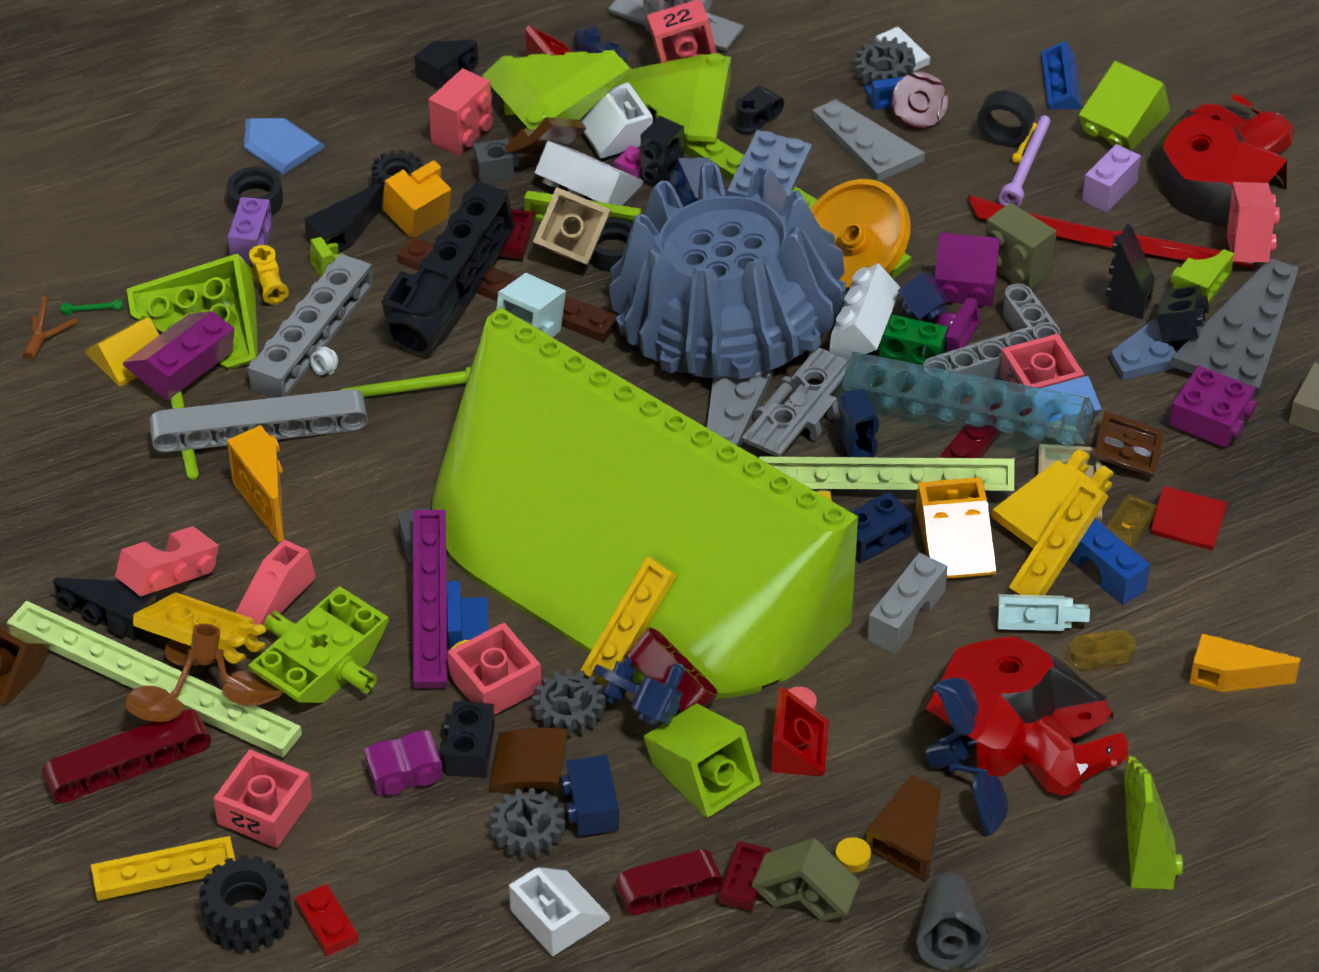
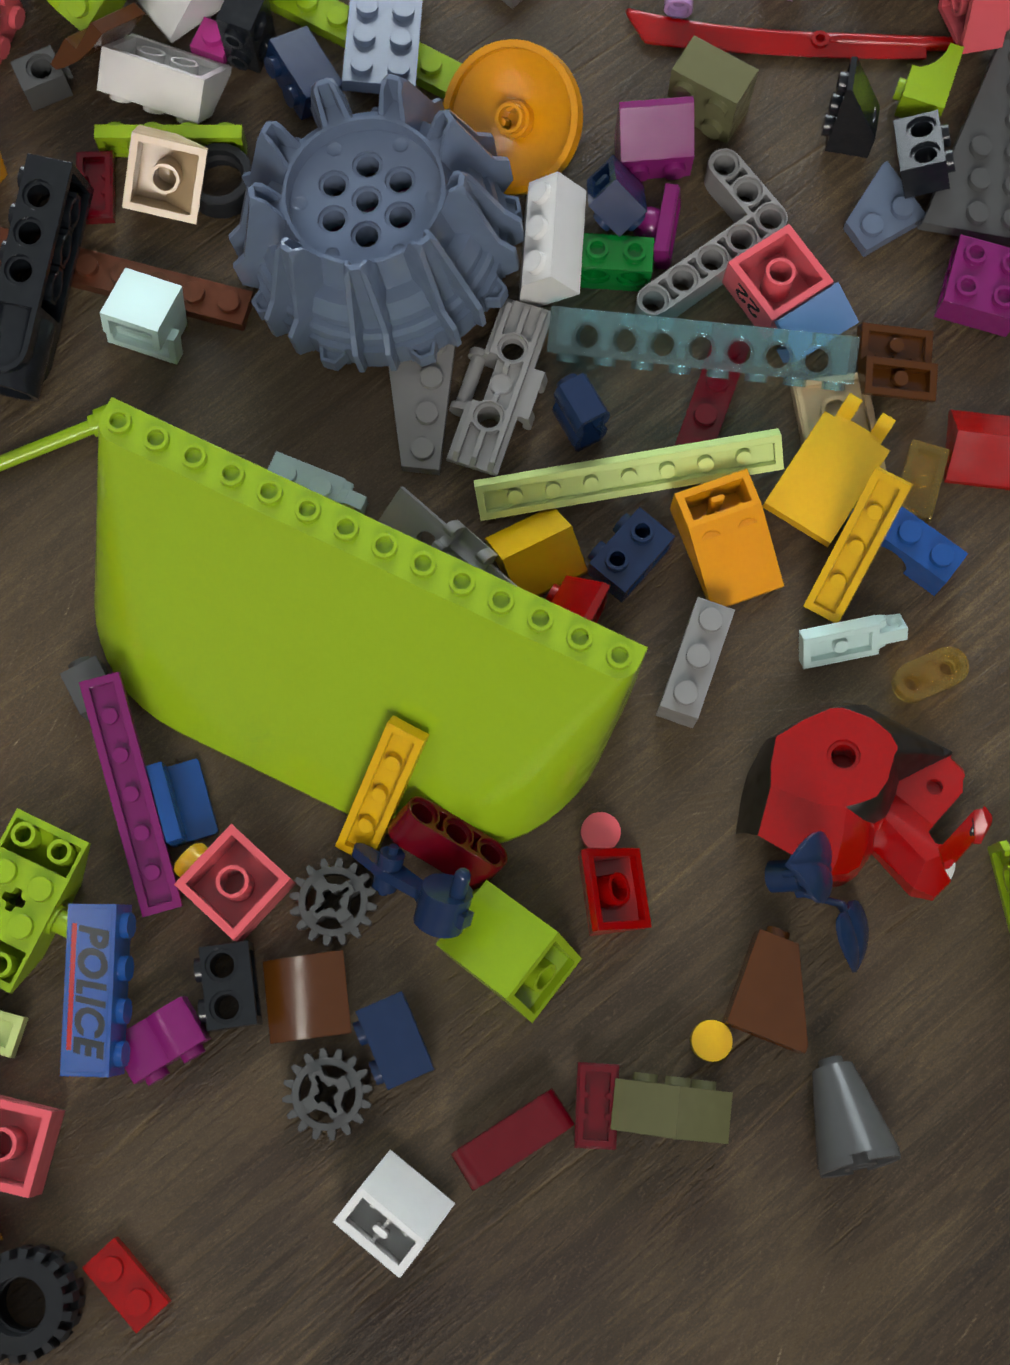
camera: 15 degrees left, 30 degrees up
(368, 703) = (97, 990): none -> blue brick

